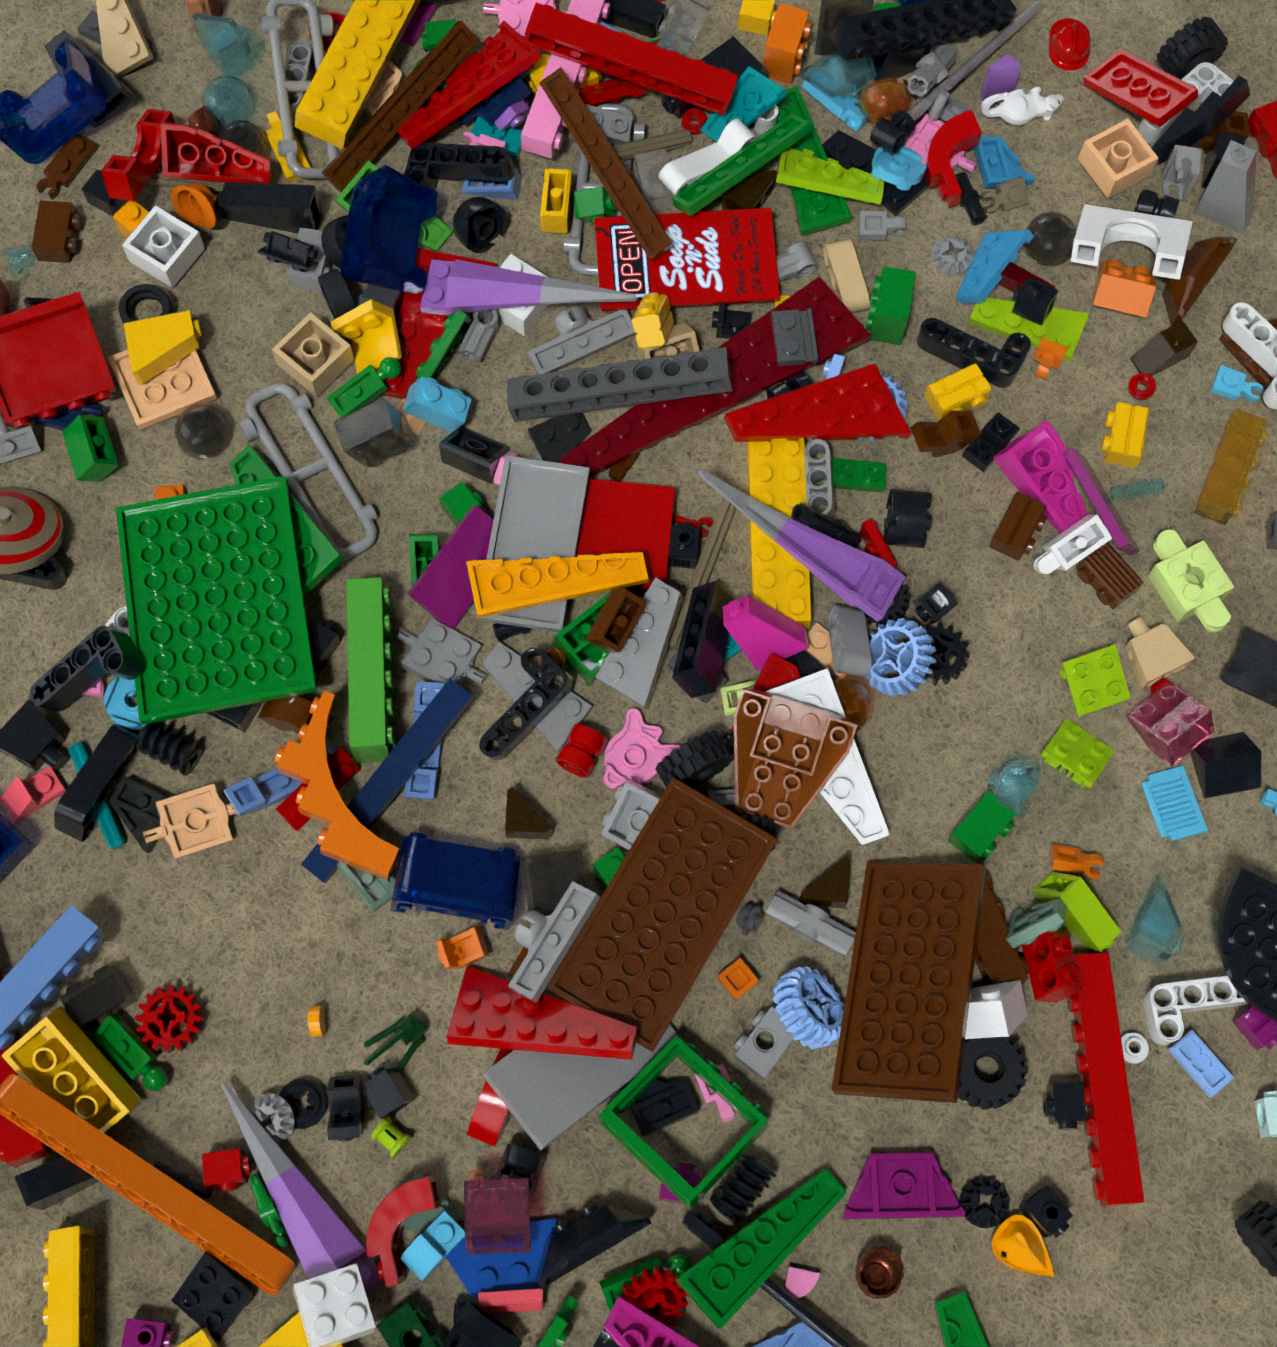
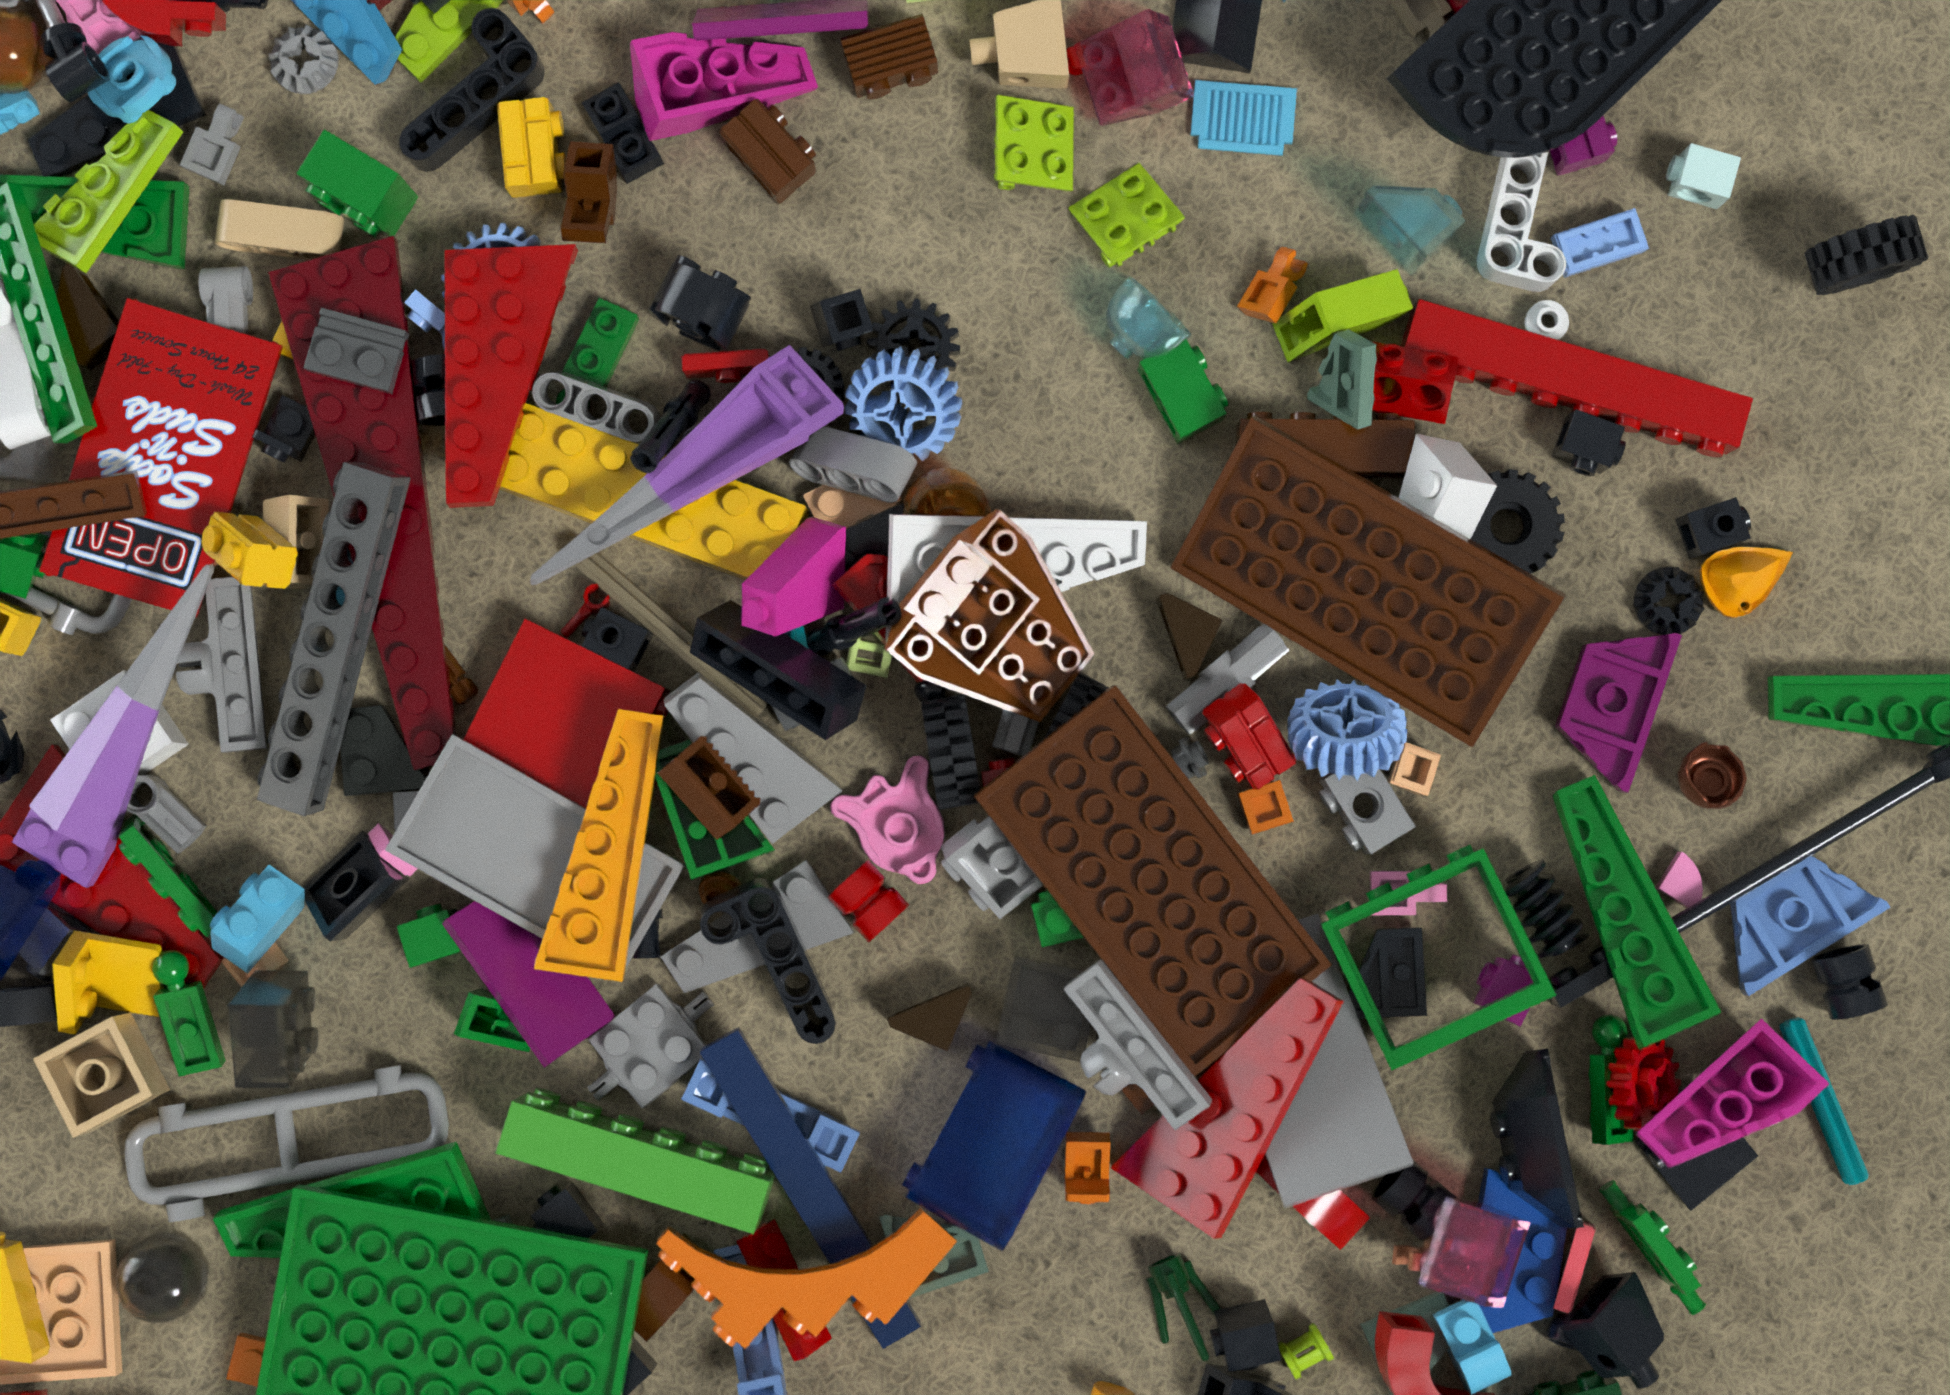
camera: 65 degrees left, 15 degrees up
(745, 672) = (844, 630): none -> black pin
(778, 947) = (1248, 736): none -> red brick
(801, 1065) = (1415, 769): none -> light nougat slope
(1072, 545) = (829, 88): white brick -> none

